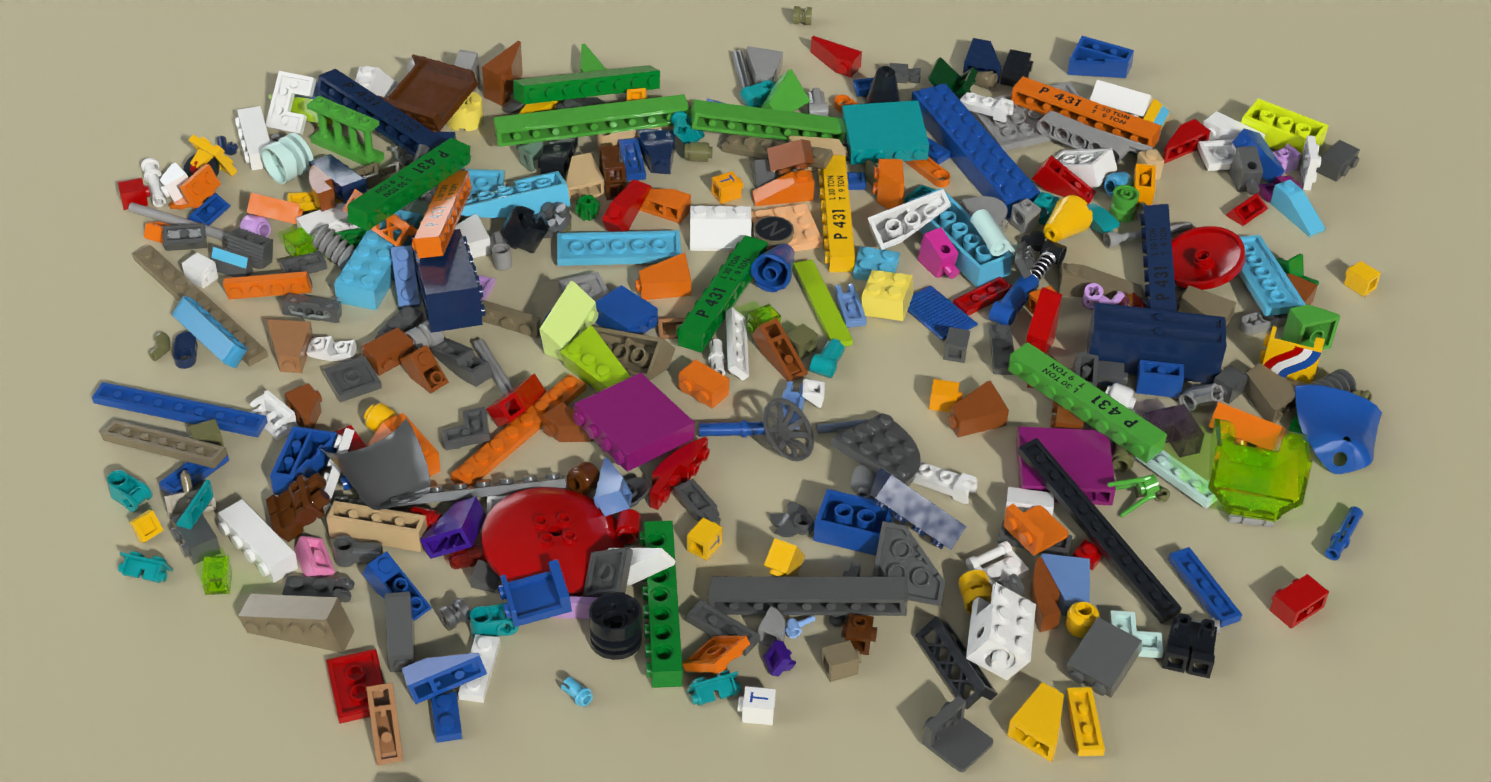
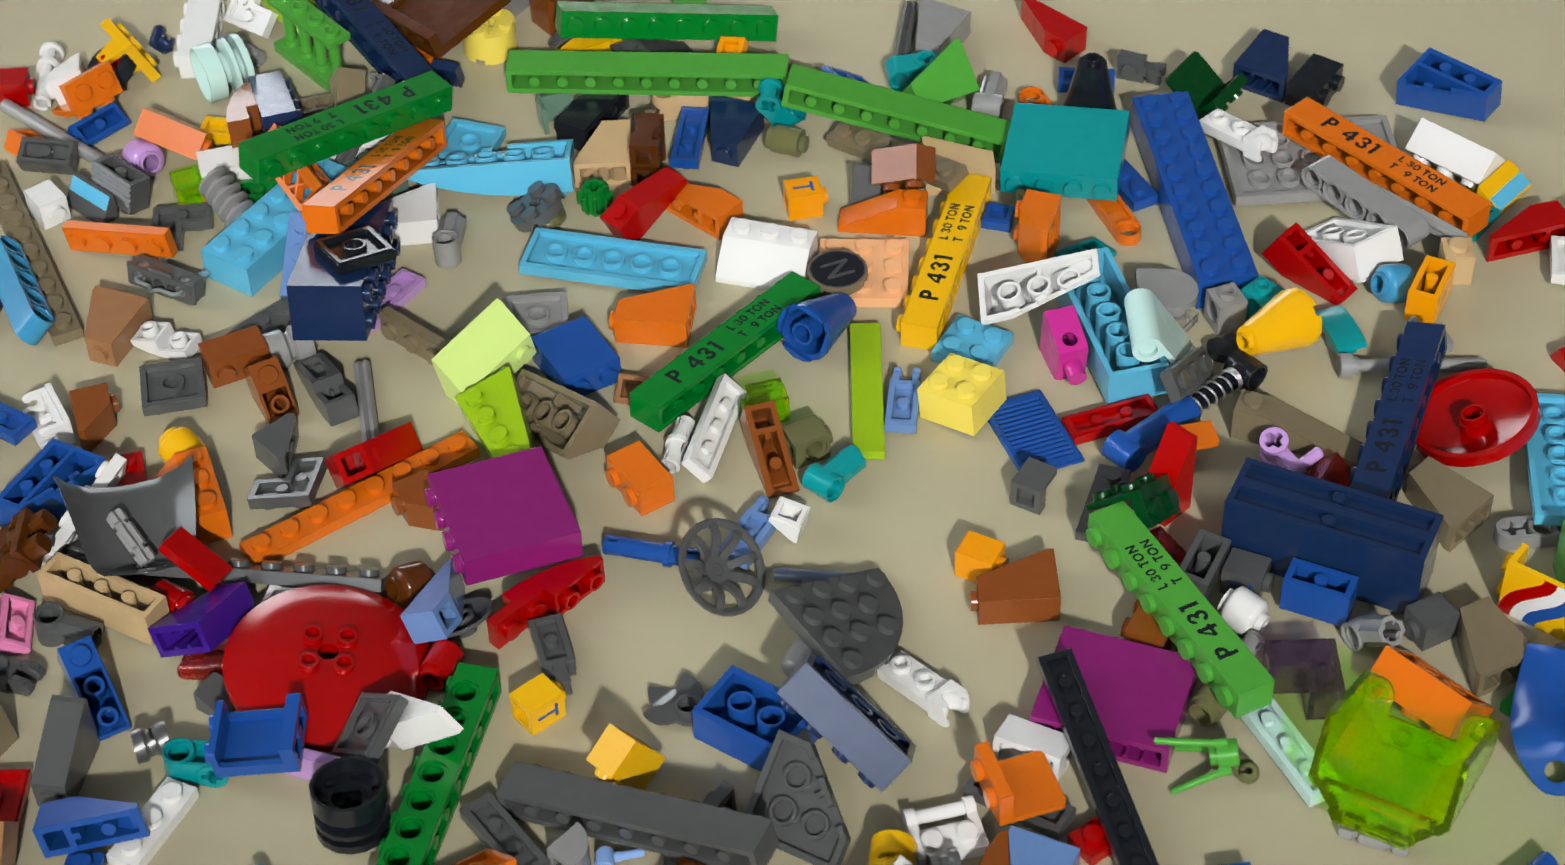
camera: 20 degrees right, 0 degrees up
(385, 481) = (131, 537): none -> light grey axle
(387, 159) = (347, 84): none -> dark tan slope
(435, 487) = (195, 559): none -> red tile
(446, 406) = (277, 444): none -> dark grey slope
(459, 264) = (354, 250): none -> black tile
(524, 229) = (488, 214): black brick -> none
(986, 79) = (1261, 93): dark tan cone -> none
(1042, 336) = (1150, 497): none -> dark green bracket
(1124, 203) = (1387, 313): bright green wheel -> none

